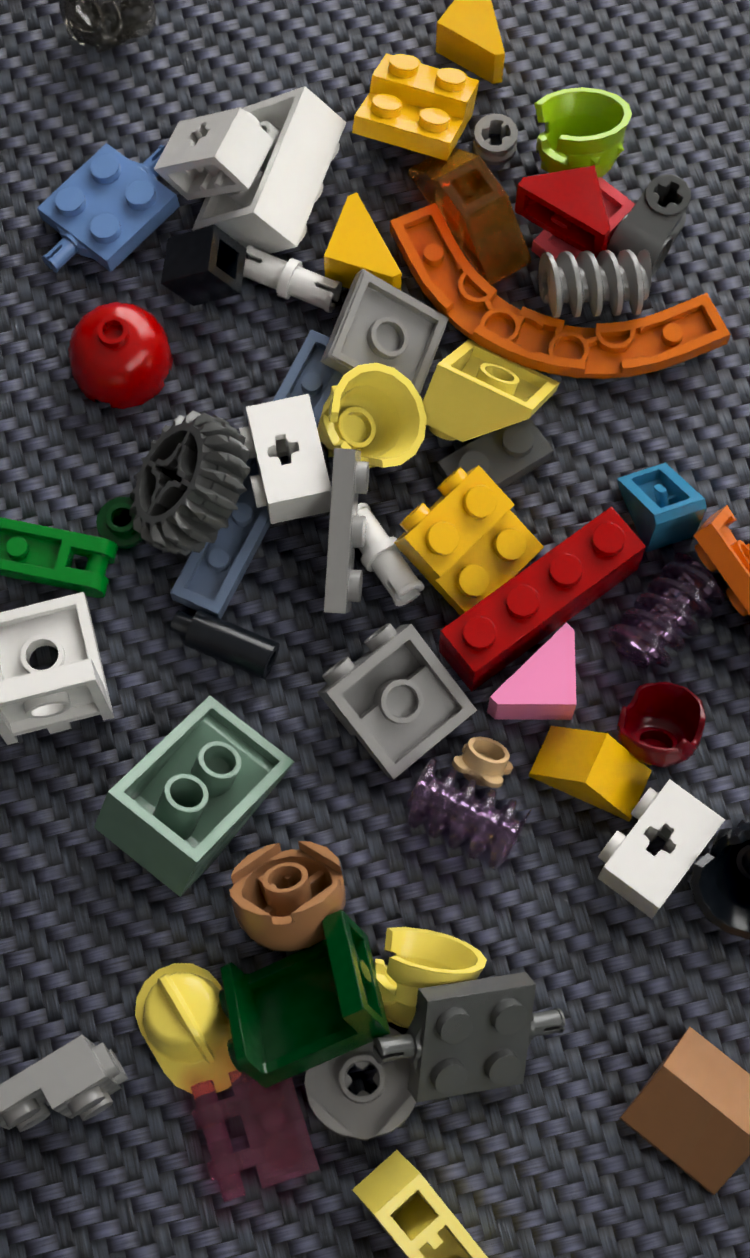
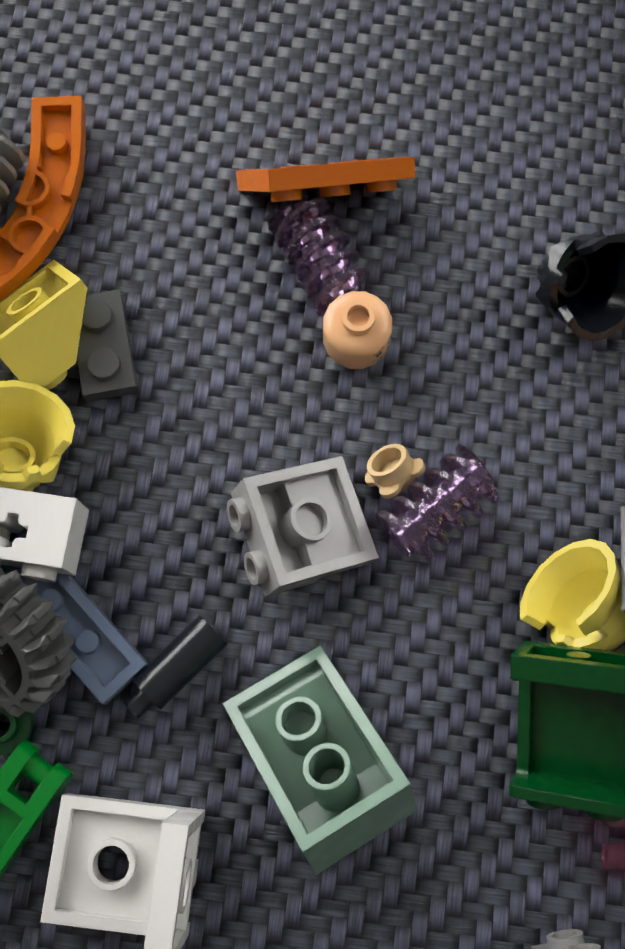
camera: 70 degrees left, 5 degrees up
(186, 1025) = (539, 850): light yellow piece -> none
(287, 894) = (462, 701): medium nougat cylinder -> none
(346, 531) = (119, 503): light grey plate -> none
(385, 559) = (150, 483): white pin -> none
(467, 539) = (174, 398): yellow plate -> none
(541, 598) = (261, 355): red brick -> none
(543, 685) = (339, 384): bright pink slope -> none
(591, 769) = (431, 382): yellow slope -> none
(605, 674) = (357, 329): none -> light nougat head
(662, 505) = (213, 218): dark azure slope -> none
(662, 724) = (422, 300): dark red hair -> none
(679, 821) = (530, 325): white brick -> none

